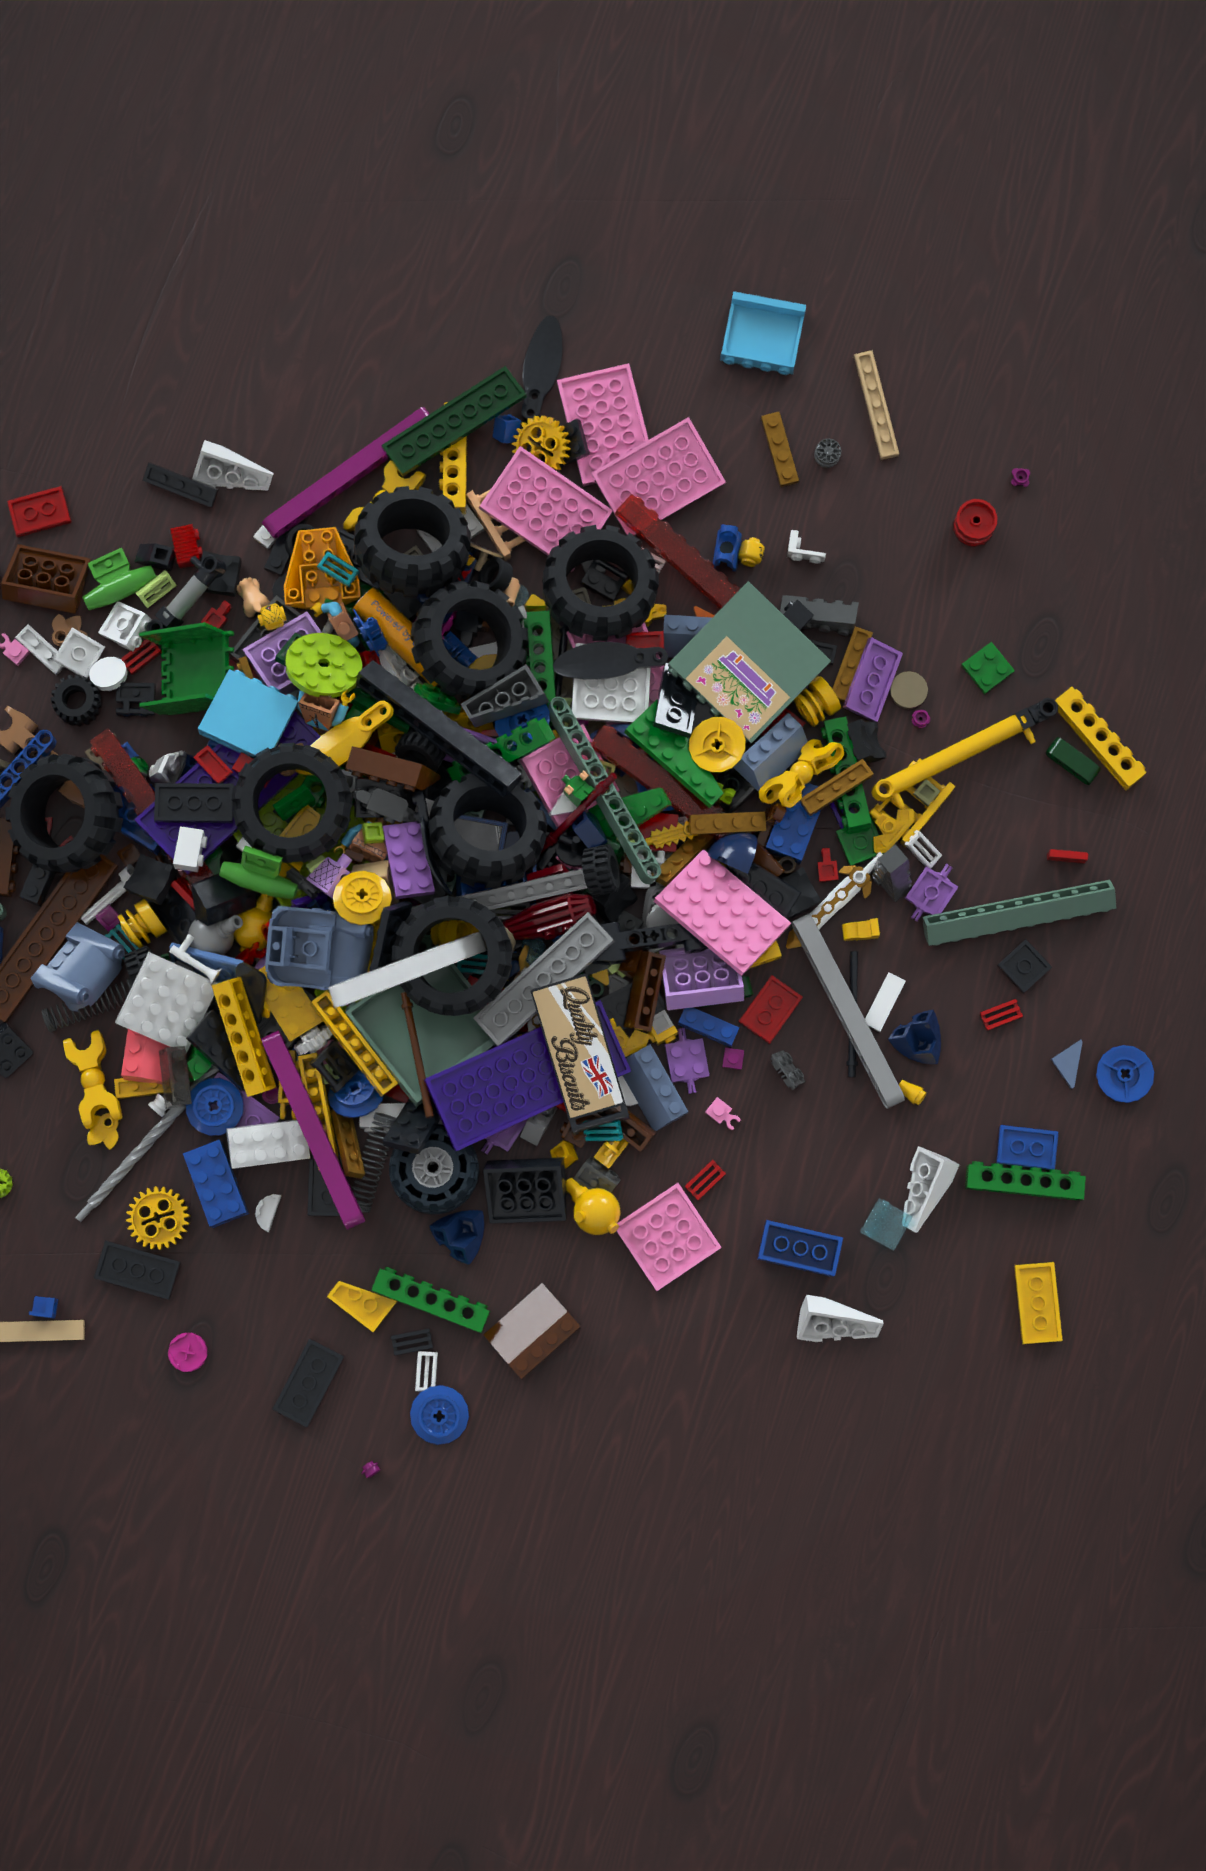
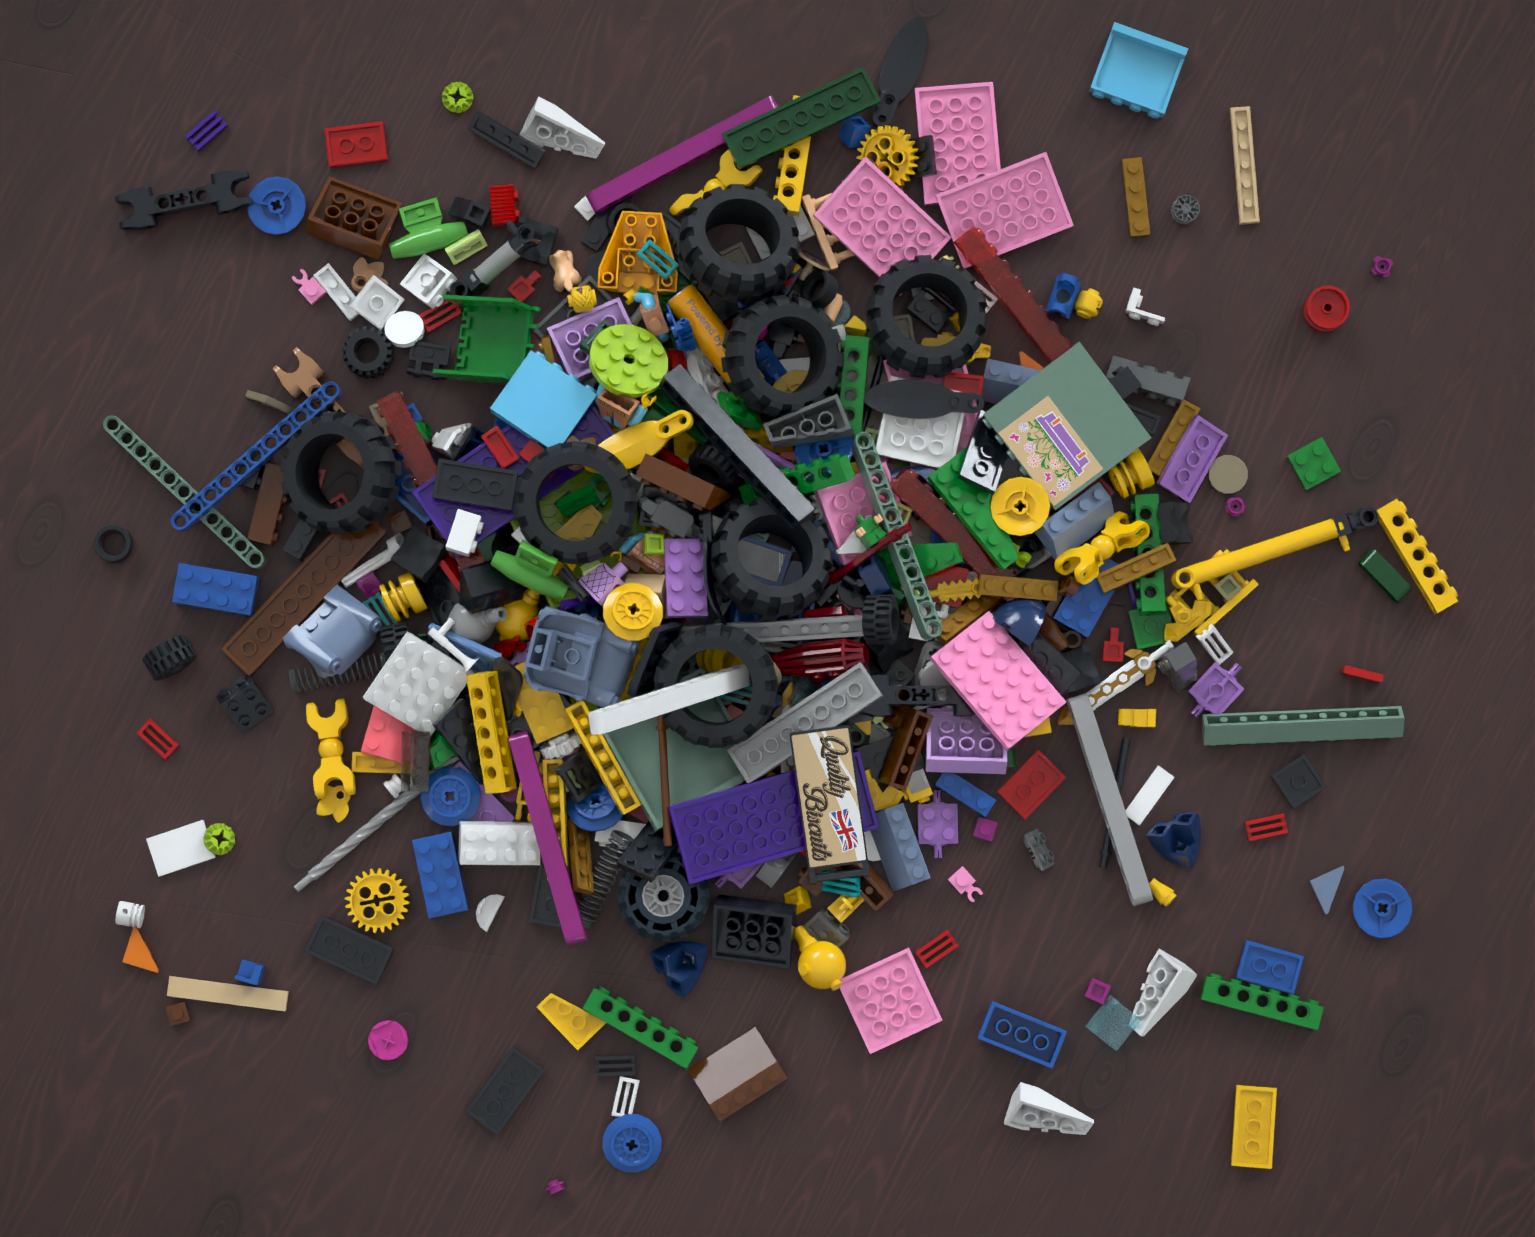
camera: 10 degrees right, 5 degrees up
(134, 459) = (462, 104): none -> lime gear
(866, 1196) = (1097, 991): none -> magenta plate

